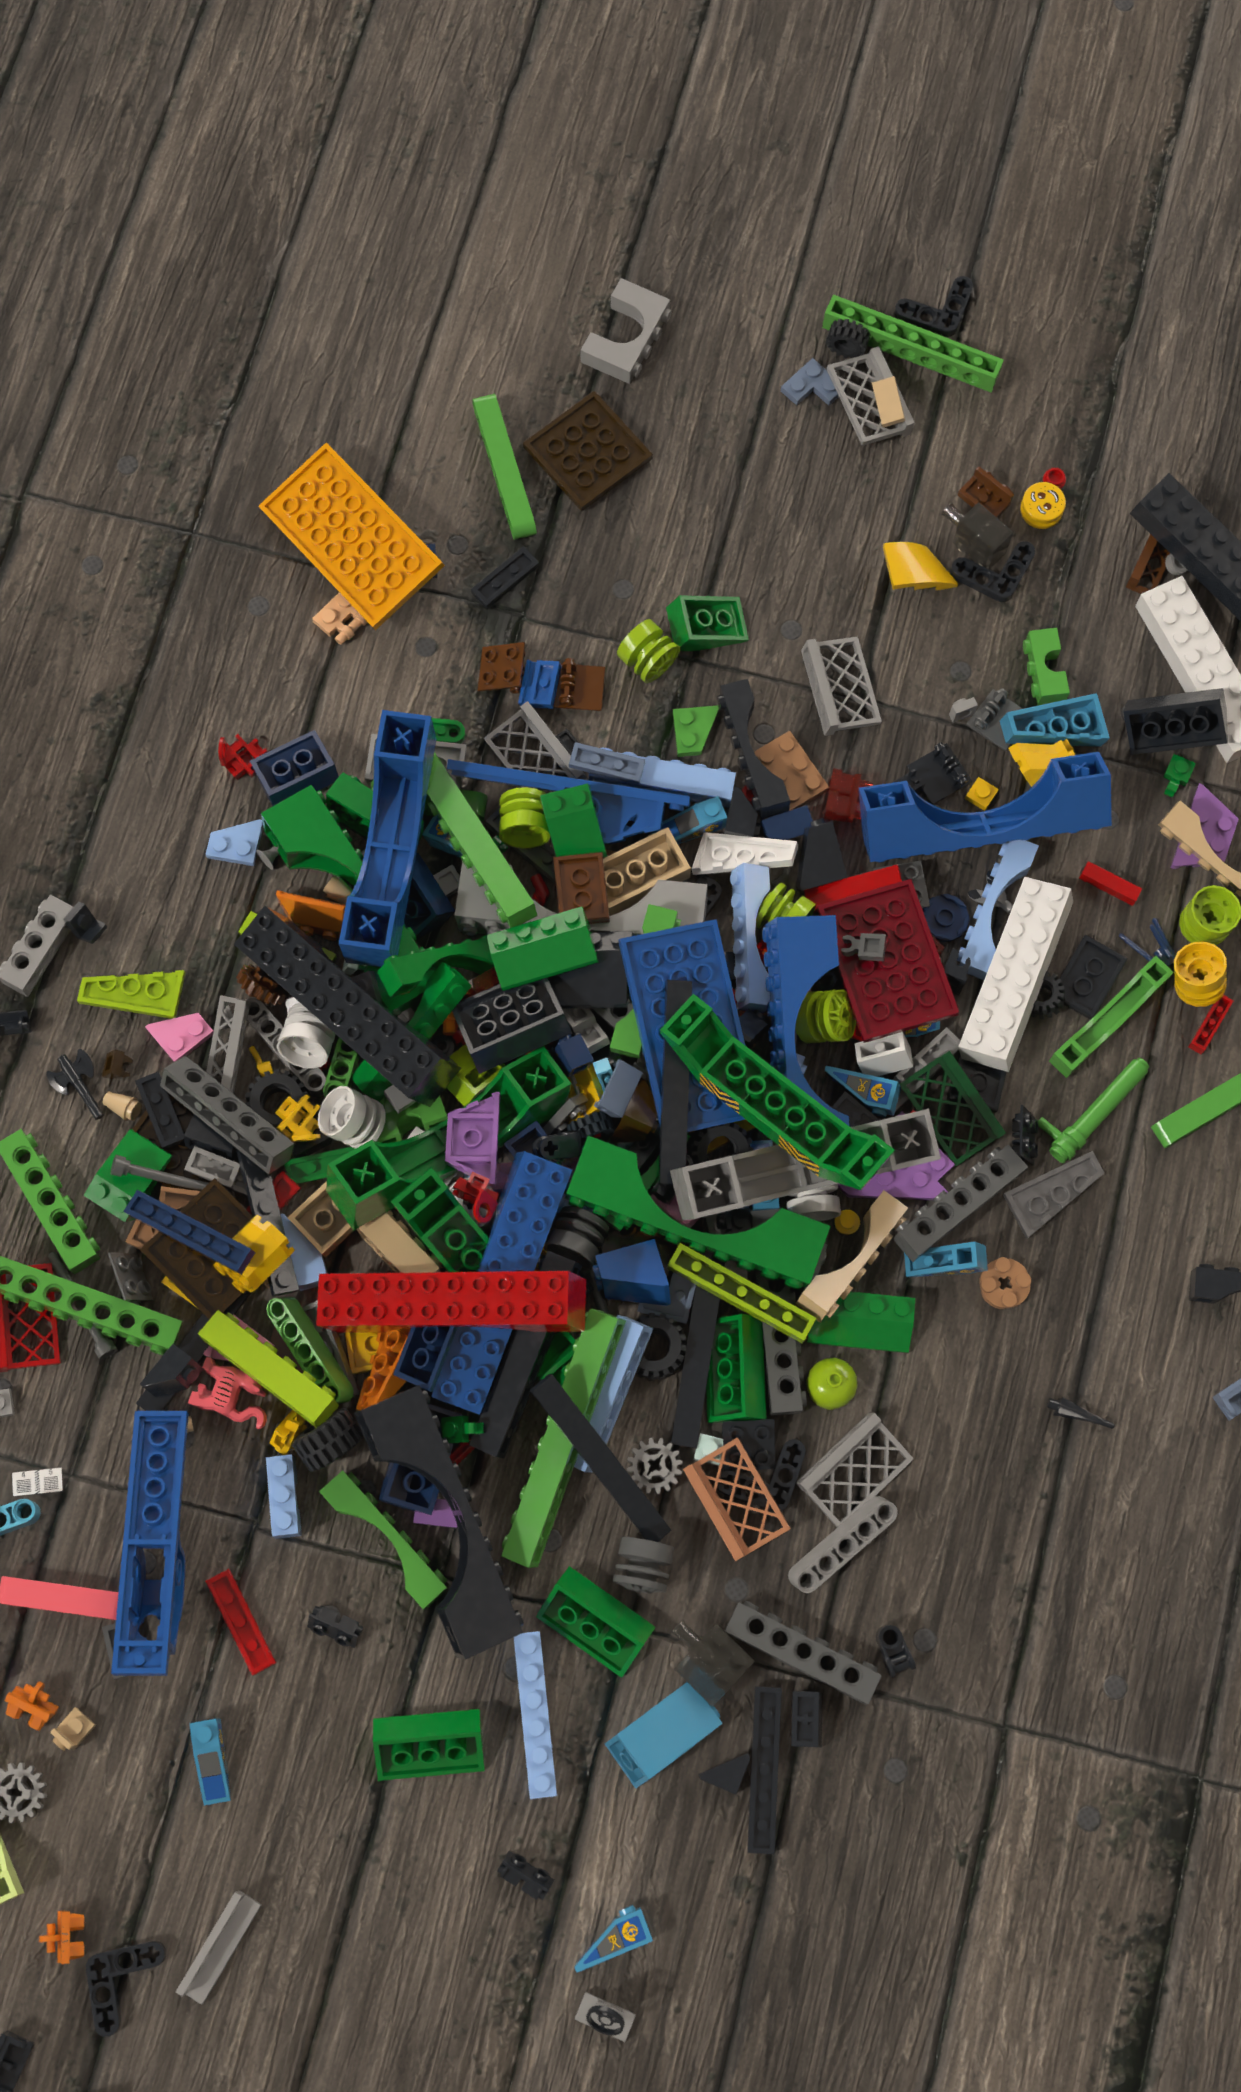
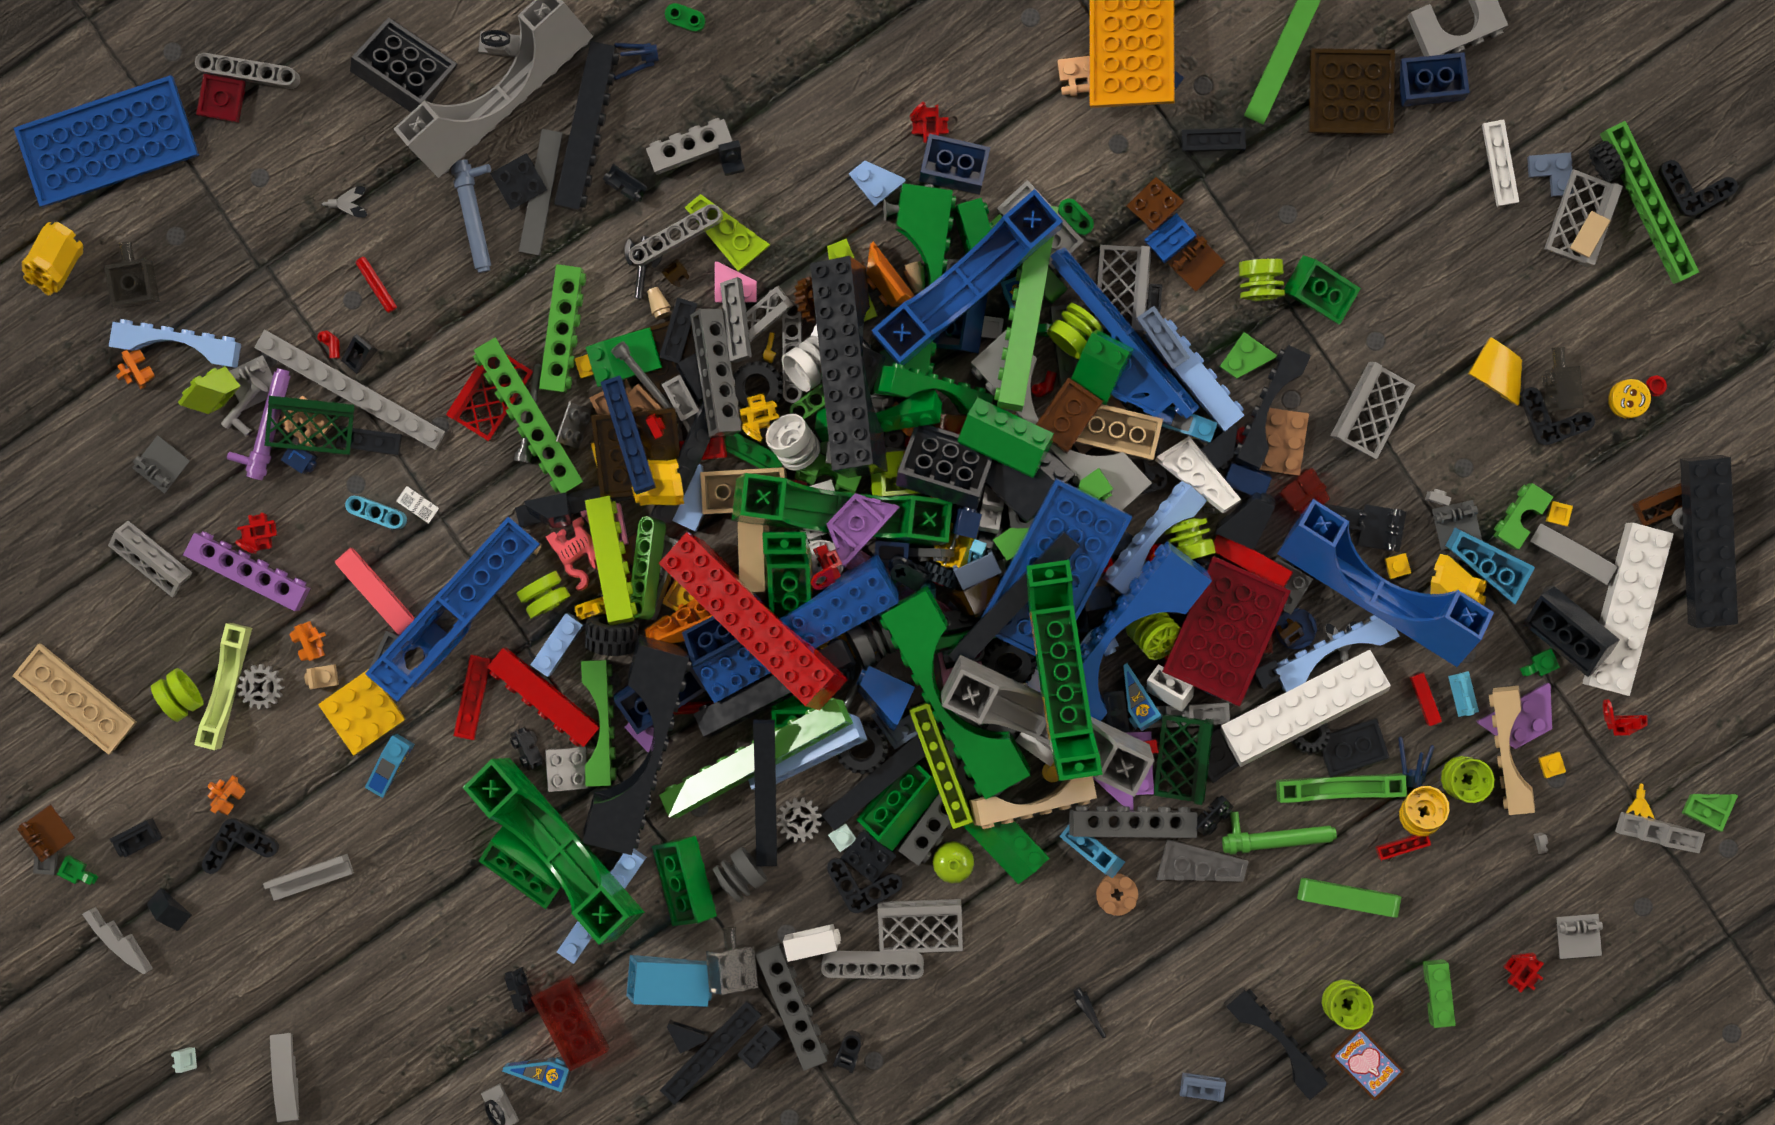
camera: 40 degrees right, 15 degrees up
(91, 1039) = (665, 235): none -> light grey beam
(98, 1217) = (584, 366): none -> yellow plate
(141, 1731) = (361, 713): none -> yellow plate
(207, 1055) = (735, 320): none -> dark grey plate
(209, 1205) = (656, 425): none -> red plate
(230, 1458) = (544, 596): none -> lime wheel
(311, 1559) = (544, 697): none -> red brick
(390, 1611) = (566, 769): none -> light grey hinge
(445, 1690) = (593, 891): none -> green arch
(457, 1429) = (694, 699): green plate -> none
(603, 1861) = (570, 1022): none -> clear red brick
(648, 387) = (1433, 79): none -> dark blue slope
(716, 1509) = (813, 881): nougat fence -> none
(763, 410) = (1500, 163): none -> white plate
(767, 1571) = (811, 942): none -> white window
(868, 947) = (1219, 614): dark grey plate -> none
(945, 920) = (1291, 633): none -> dark brown tile
(986, 491) = (1596, 358): reddish brown bracket -> none
(1074, 640) = (1559, 513): none -> yellow plate
(1118, 661) = (1574, 554): none -> light grey slope
(1137, 853) = (1463, 694): none -> medium azure hinge

